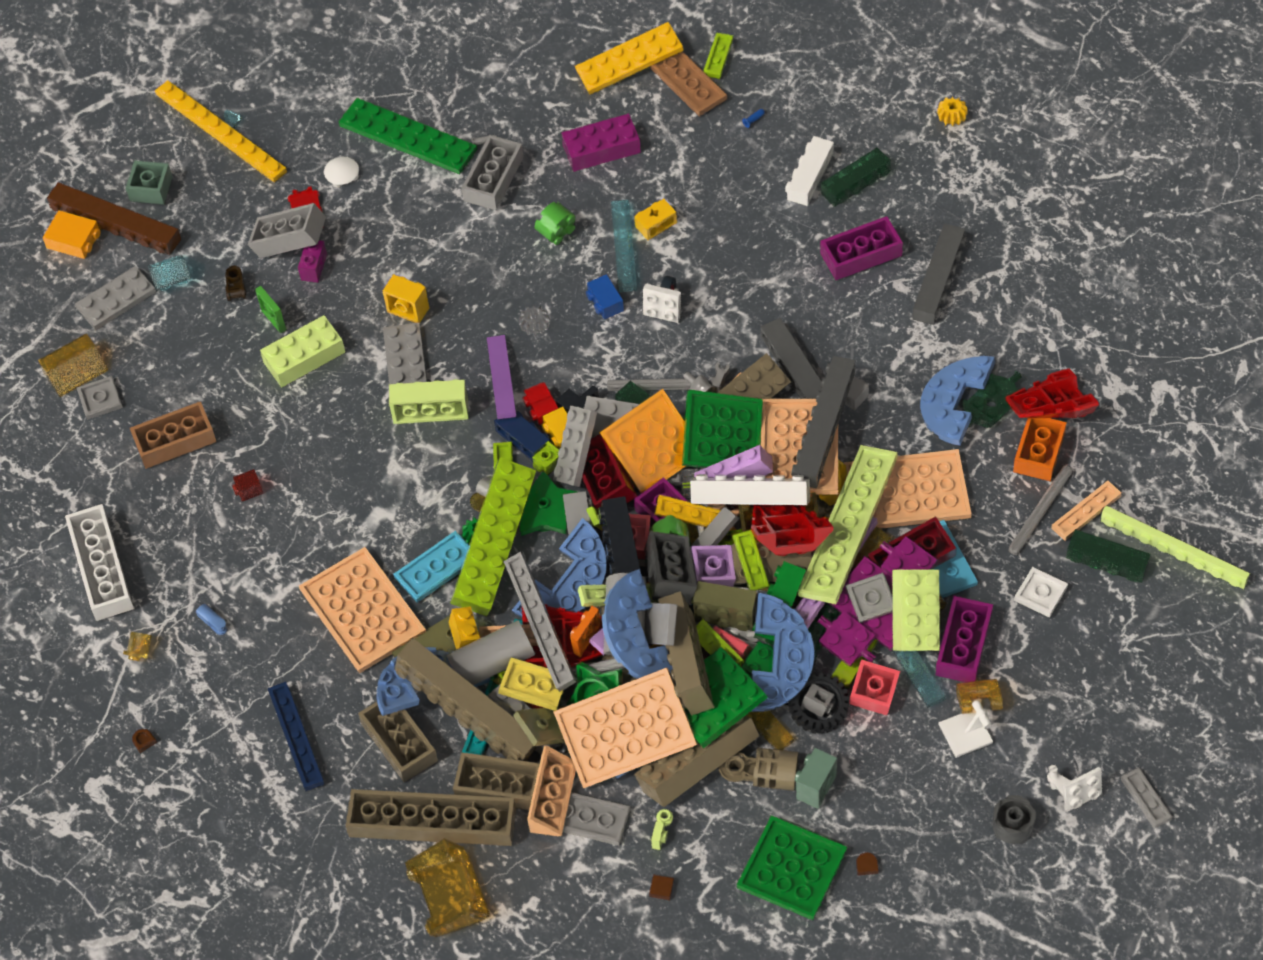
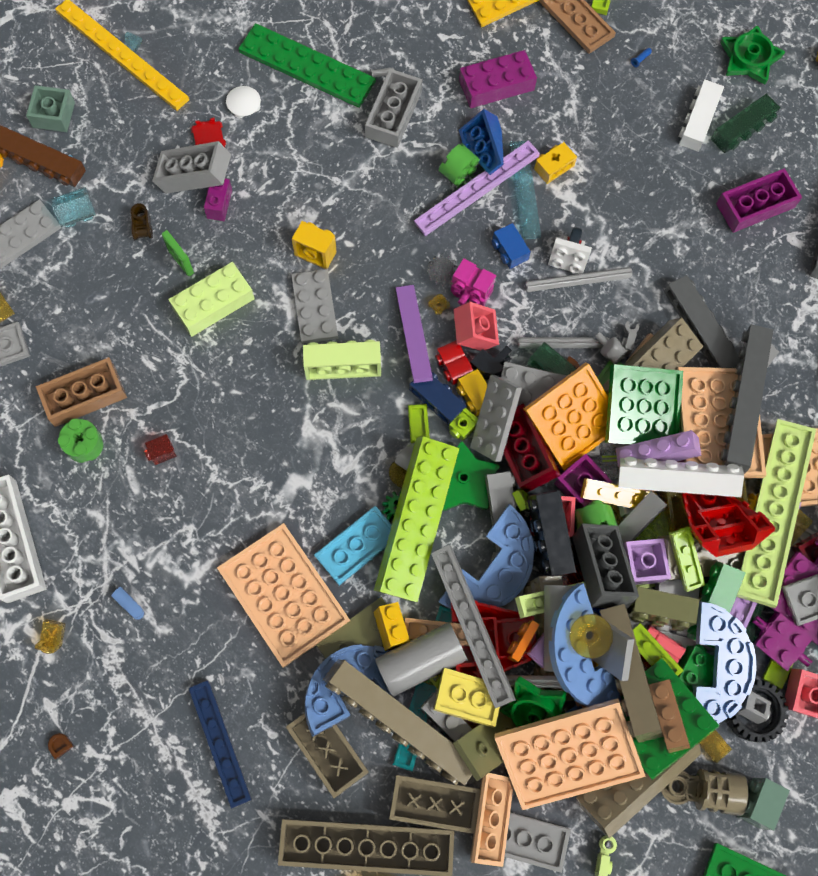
camera: 10 degrees left, 15 degrees up
(171, 478) = (71, 437): none -> bright green brick
(529, 347) = (439, 299): none -> clear yellow plate
(562, 330) = (472, 283): none -> dark pink brick
(563, 368) = (476, 326): none -> coral brick
(572, 244) = (475, 189): none -> lavender plate
(582, 198) = (484, 139): none -> blue wedge
(641, 600) = (601, 639): none -> clear yellow dish
(674, 326) = (578, 279): none -> light grey axle
(717, 685) = (669, 716): none -> medium nougat brick
(868, 112) = (751, 55): none -> green plate

